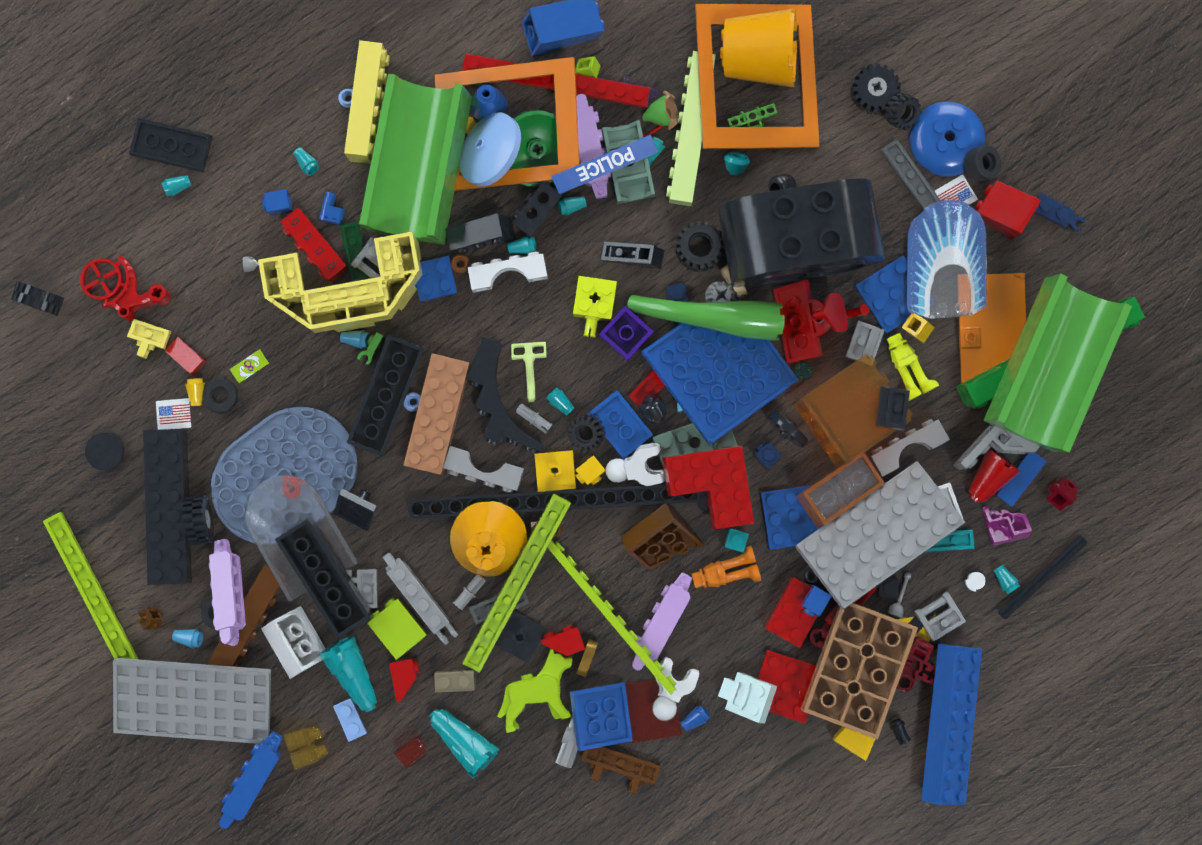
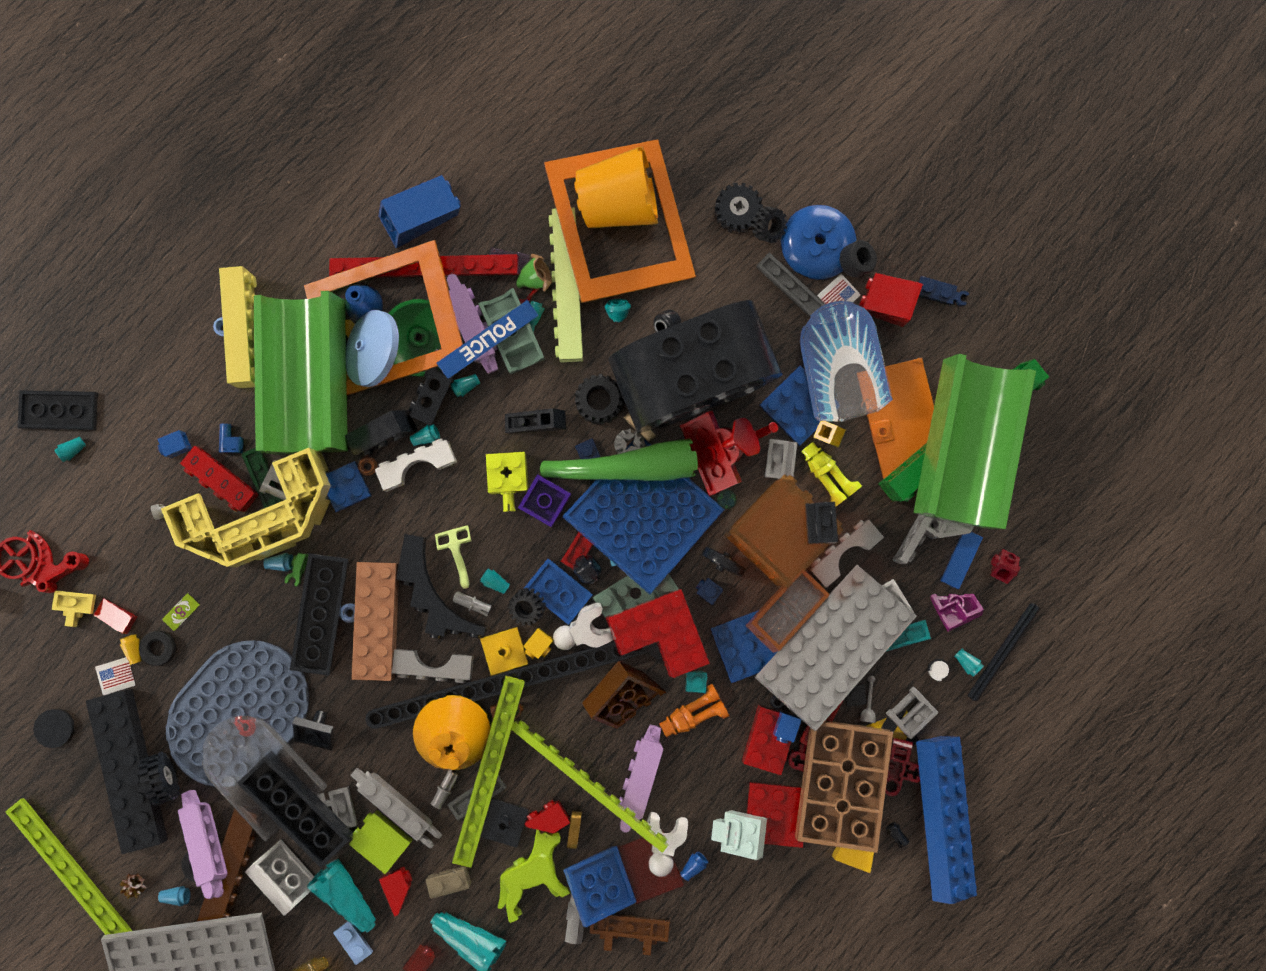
camera: 15 degrees left, 0 degrees up
(306, 162) = (194, 398): teal cone -> none
(588, 67) = (452, 246): lime slope -> none
(757, 112) = (629, 260): bright green piece -> none
(991, 476) = (932, 564): red cone -> none

